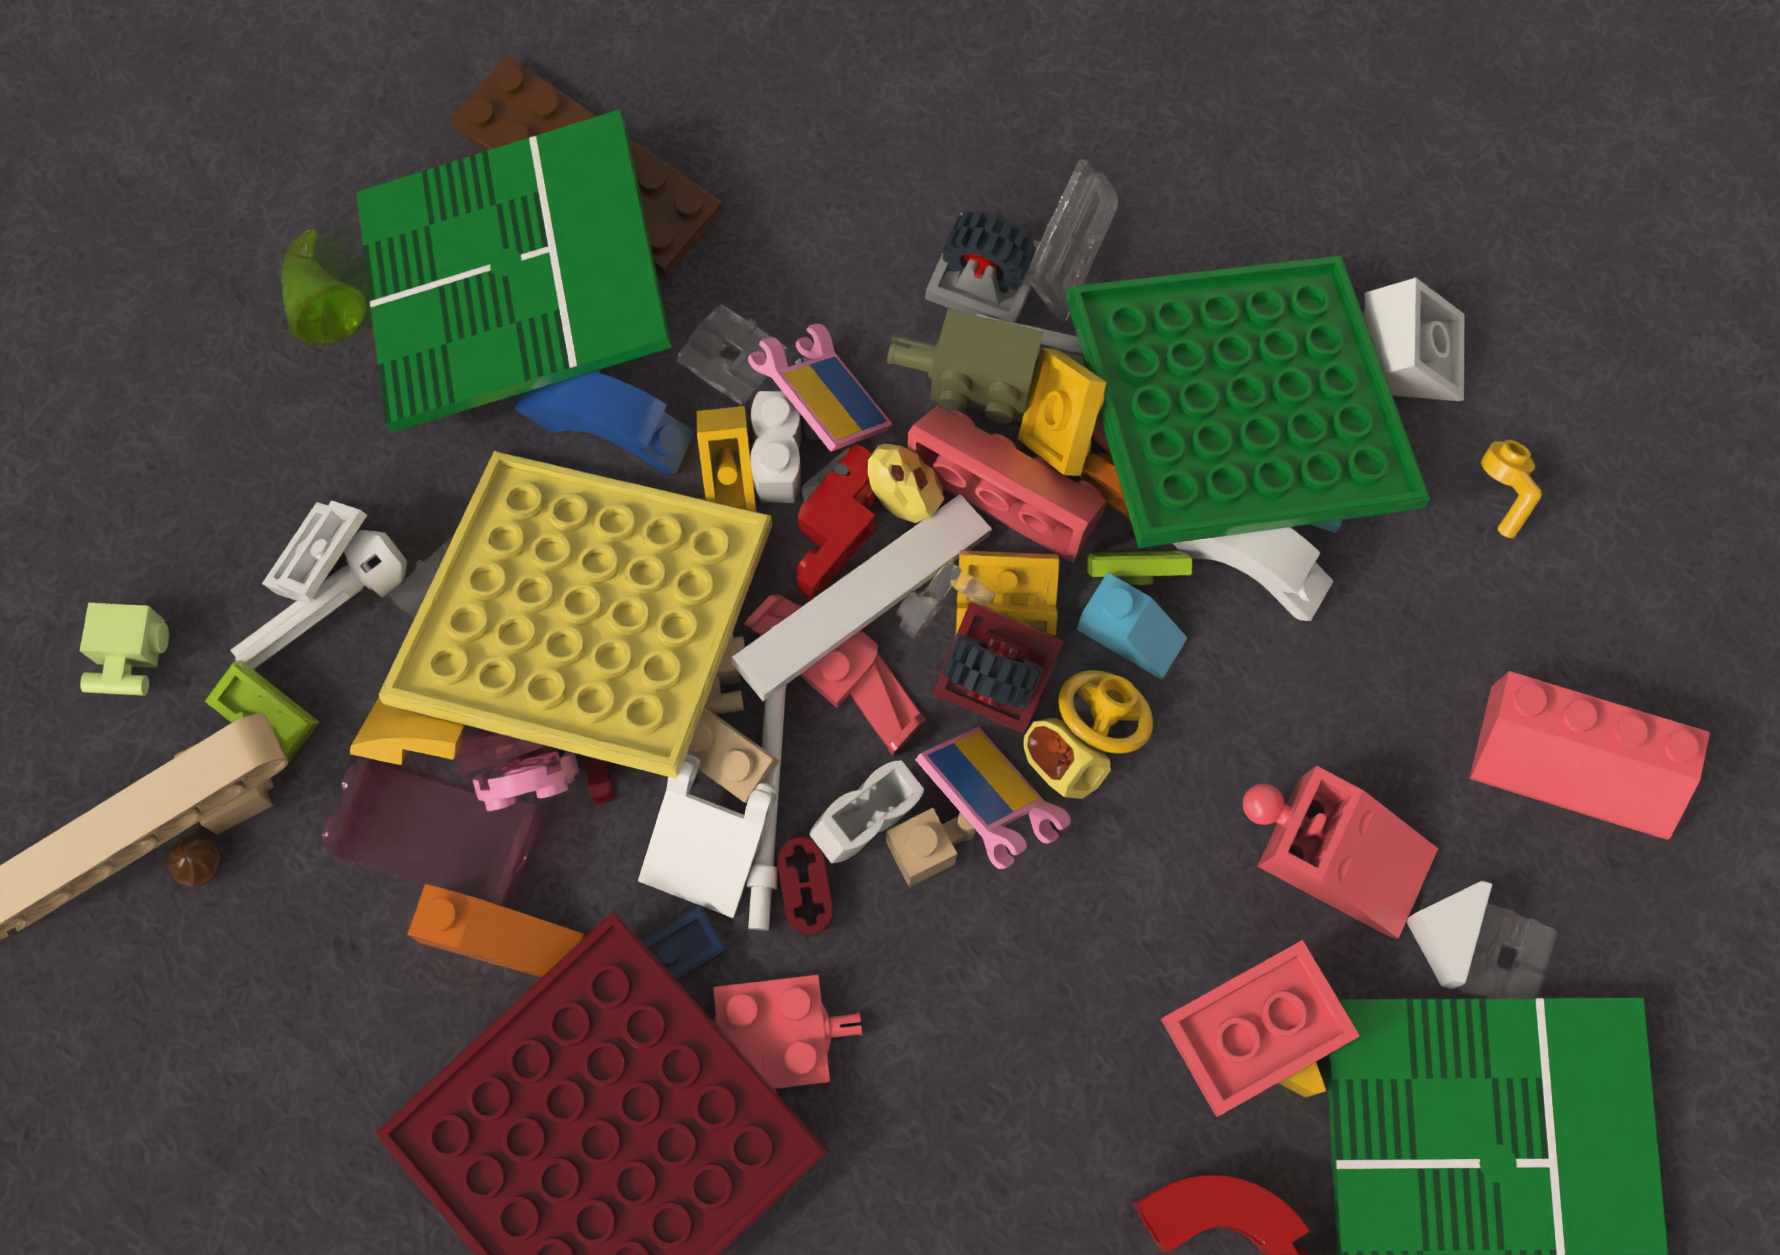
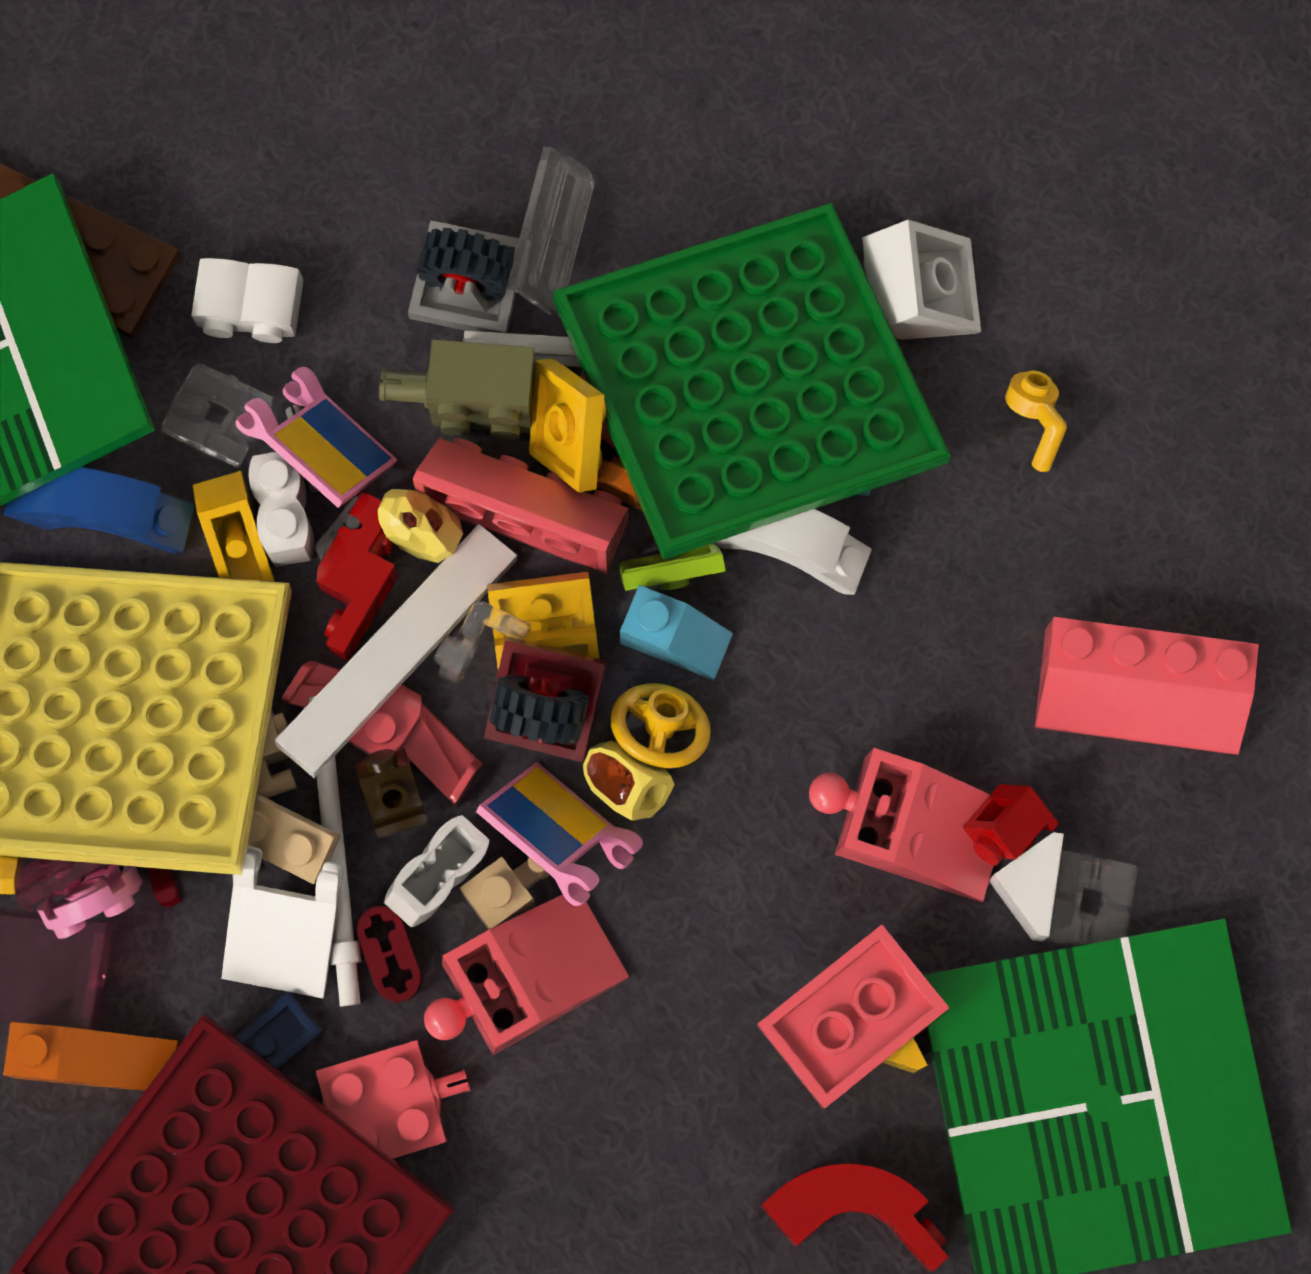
camera: 10 degrees left, 5 degrees up
(778, 254) = (247, 299): none -> white brick
(834, 747) = (395, 809): none -> dark brown brick
(946, 927) = (535, 970): none -> coral slope
(1437, 864) = (1008, 823): none -> red brick

